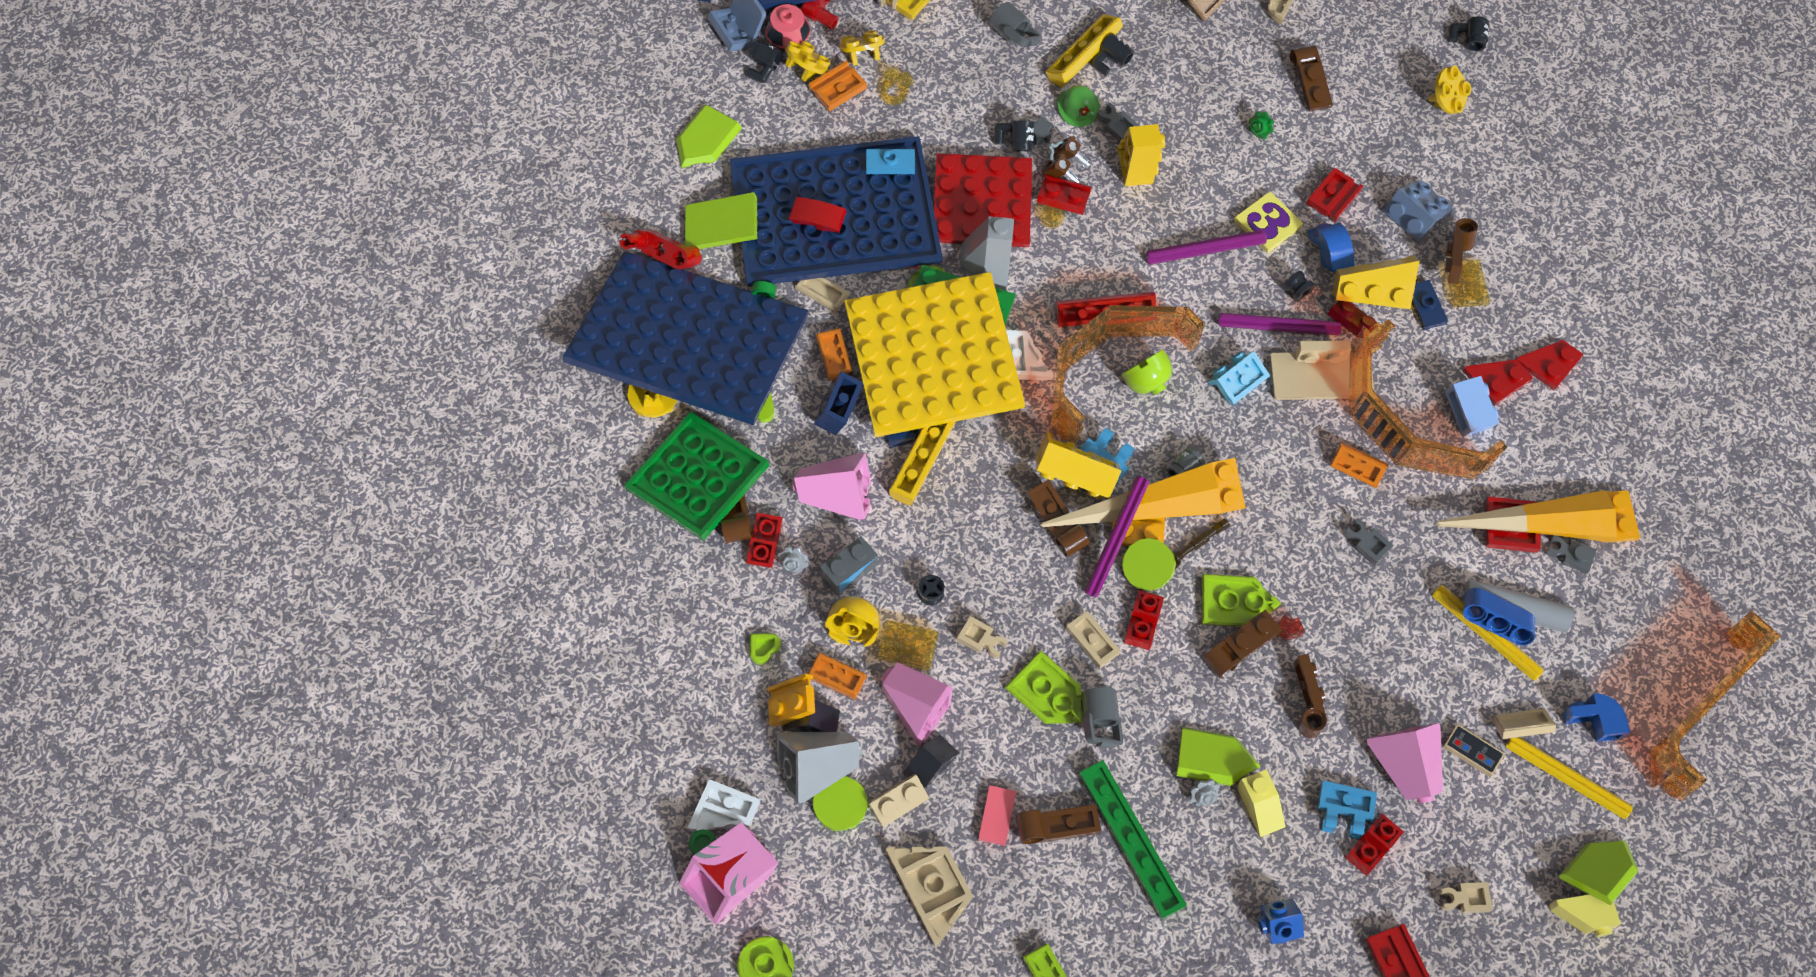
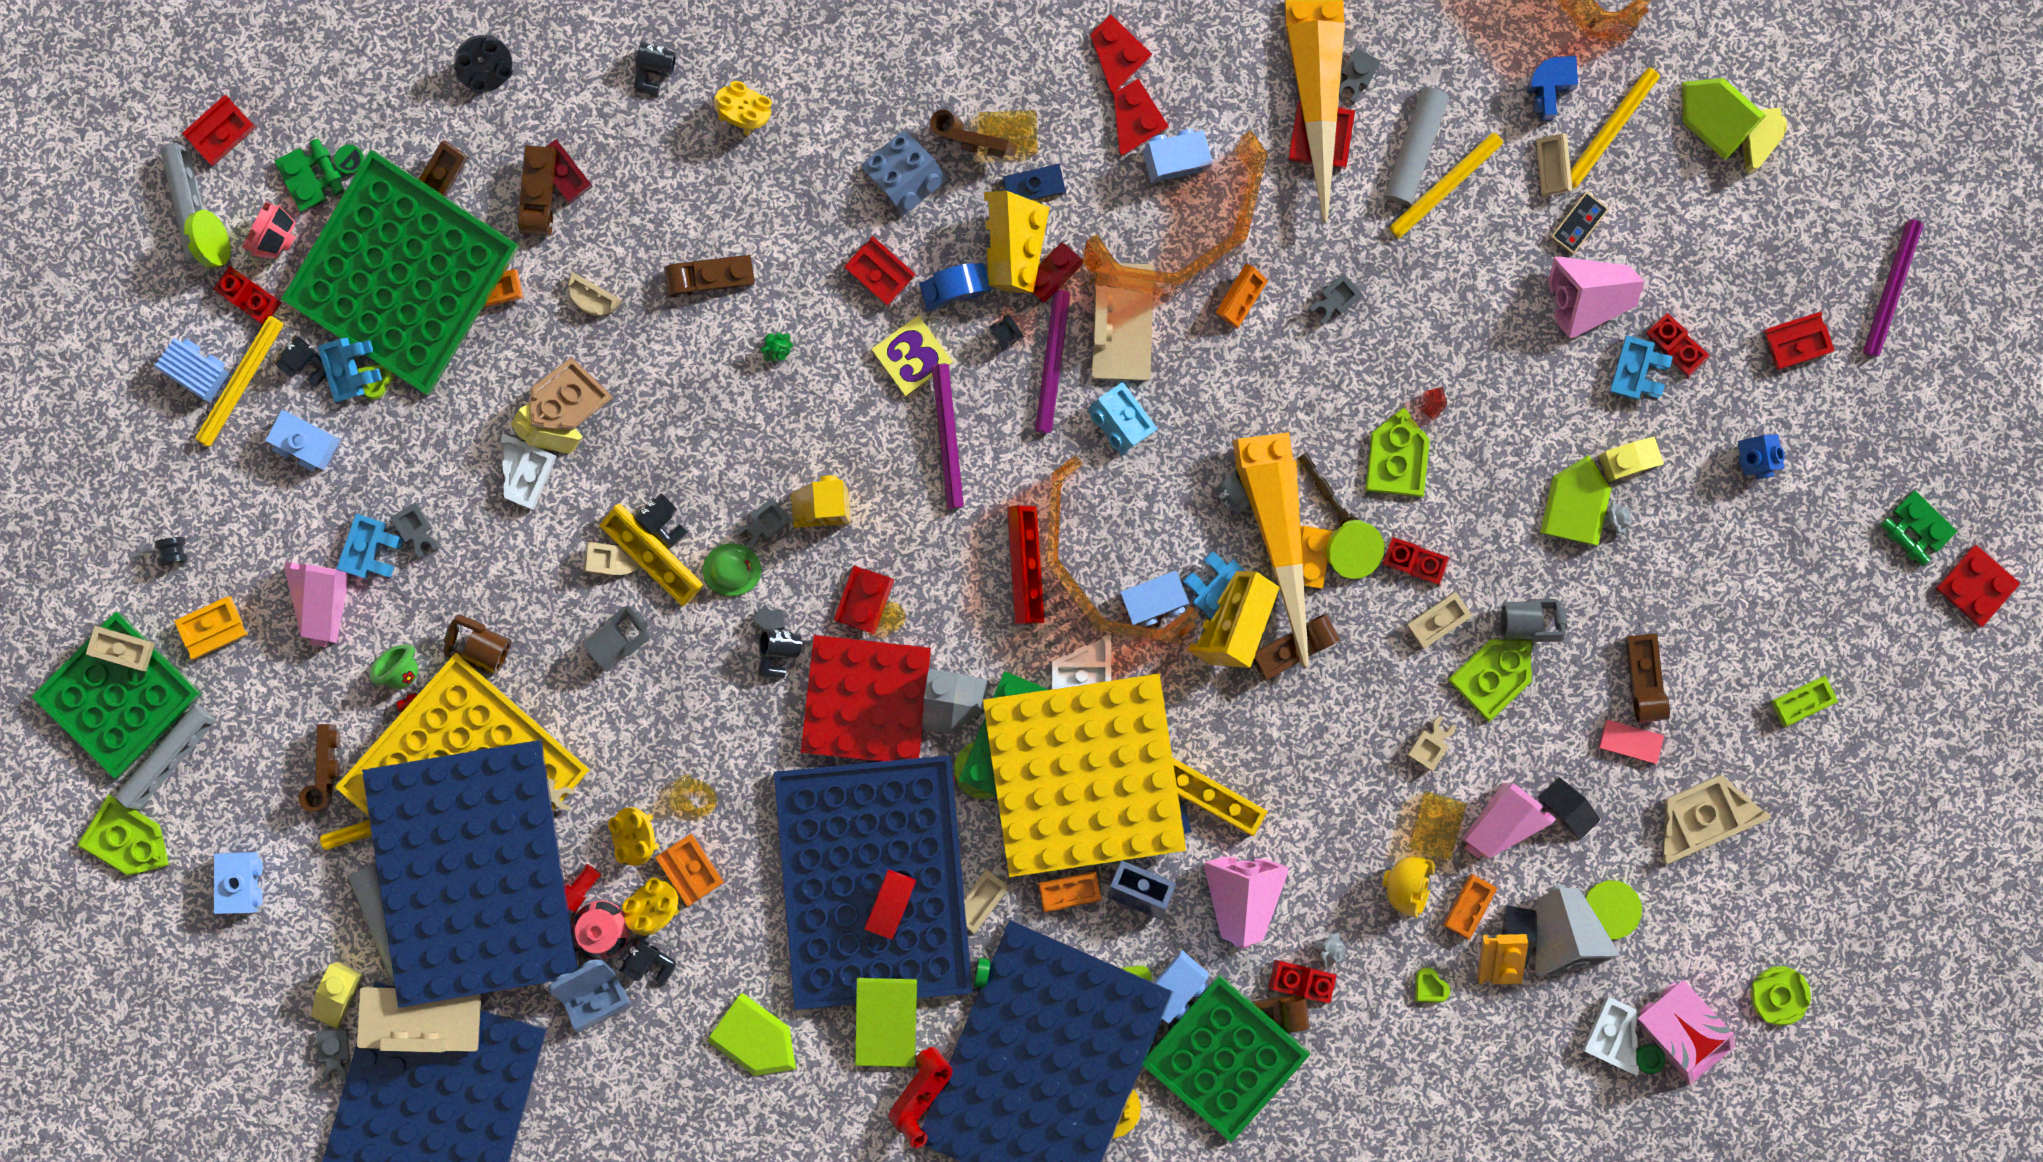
camera: 85 degrees left, 20 degrees up
(763, 437) = (1186, 980): none -> light blue brick
(849, 566) = (1344, 887): dark grey brick -> none
(890, 161) = (813, 810): dark azure plate -> none
(898, 800) = (1612, 847): tan plate -> none
(928, 585) = (1377, 799): black wheel -> none
(1062, 152) = (825, 604): piece -> none
(1076, 20) = (608, 560): none -> tan plate
(1091, 402) = (1155, 598): none -> light blue brick
(1116, 536) = (1326, 582): magenta axle -> none
(1132, 840) = (1664, 601): green plate -> none
(1149, 374) = (1118, 523): lime cylinder -> none
(1242, 643) = (1455, 457): reddish brown plate -> none
(1313, 697) = (1515, 387): reddish brown plate -> none
(1470, 896) = (1739, 253): tan plate -> none
(1499, 616) = (1436, 171): blue beam -> none

